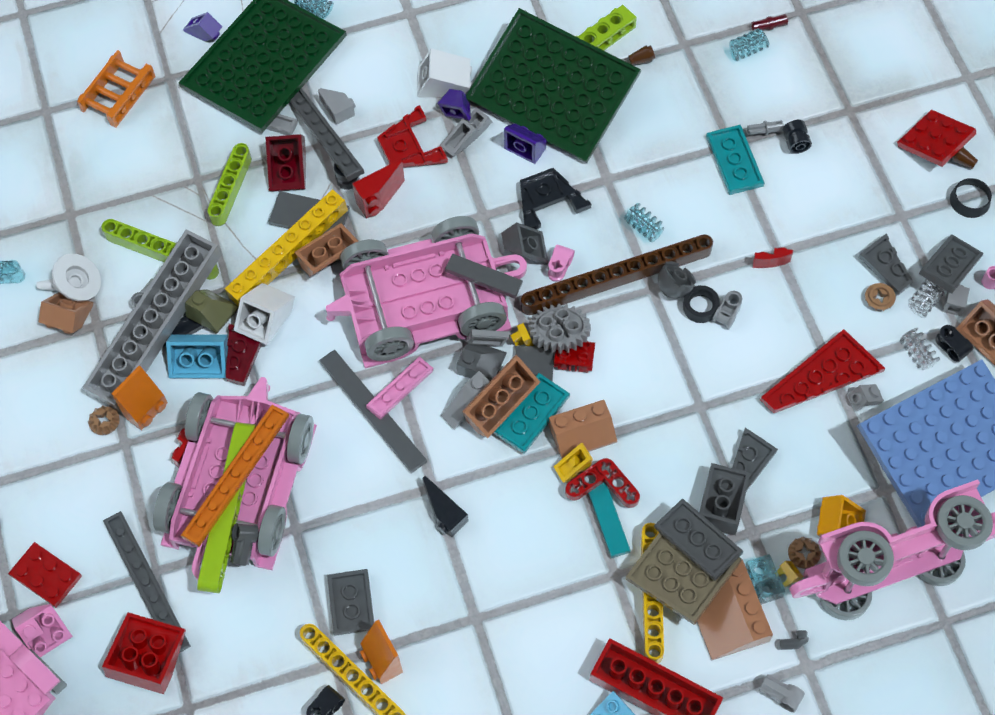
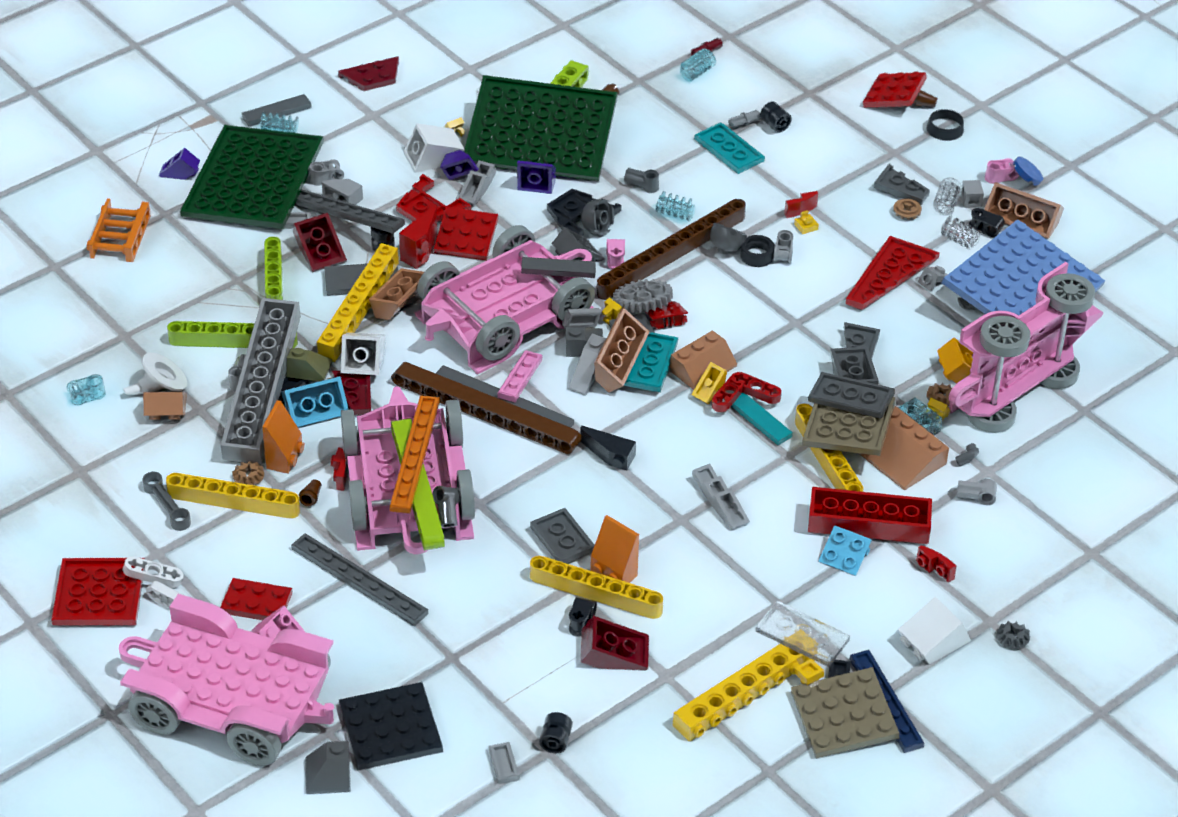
camera: 25 degrees left, 20 degrees down
(18, 427) = (166, 501): none -> dark grey piece
(70, 437) = (233, 495): none -> yellow beam
(144, 653) = (391, 624): red slope -> none
(145, 465) = (310, 493): none -> reddish brown cone
(329, 74) = (325, 171): none -> light grey piece
(351, 418) = (488, 408): none -> reddish brown beam
(427, 192) = (466, 233): none -> red plate
(476, 53) = (456, 125): none -> yellow tile
(523, 607) = (720, 497): none -> light grey slope
(560, 213) = (597, 216): none -> dark grey cylinder
(627, 176) = (648, 180): none -> dark grey piece
(767, 283) = (806, 223): none -> yellow tile
(951, 263) = (955, 168): dark grey tile -> none

